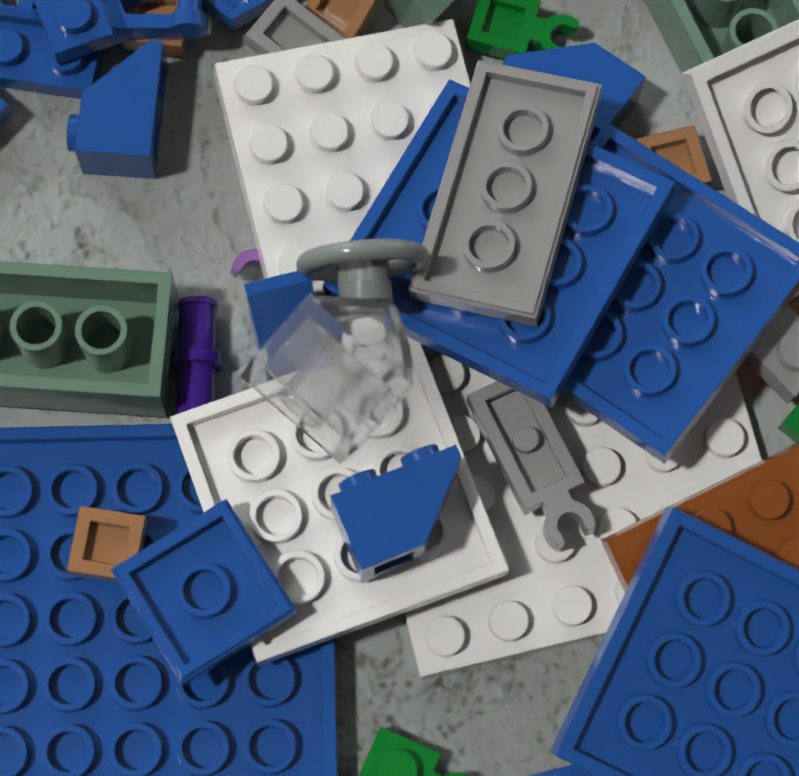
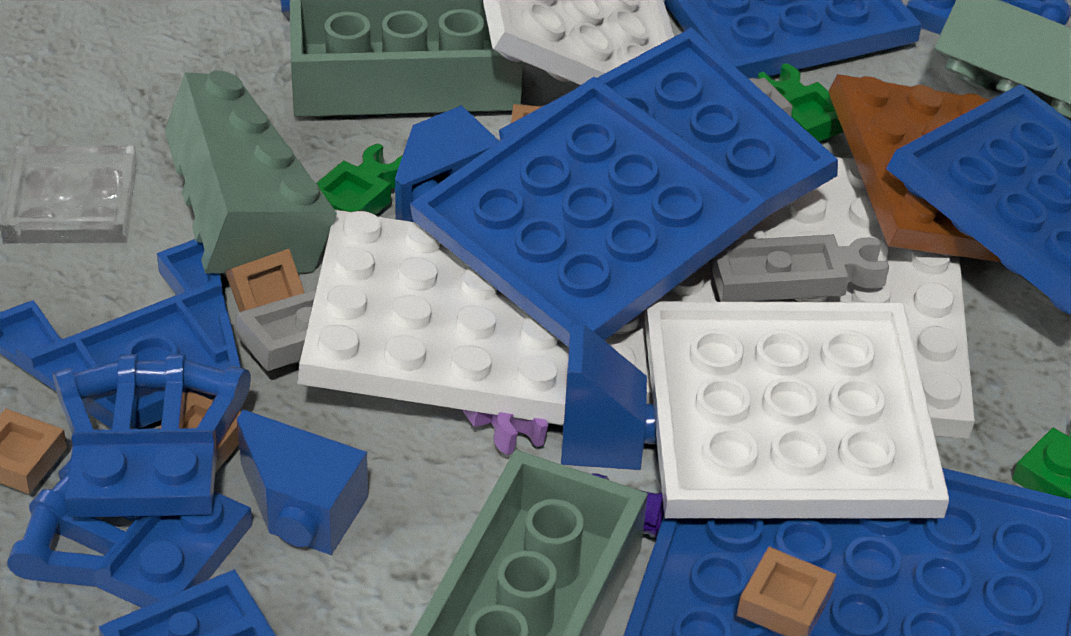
camera: 70 degrees left, 30 degrees down
(204, 592) = (870, 513): blue tile -> none
(346, 357) = (695, 316): clear piece -> none
(394, 514) = (837, 339): blue slope -> none
(507, 192) = (553, 181): light grey tile -> none

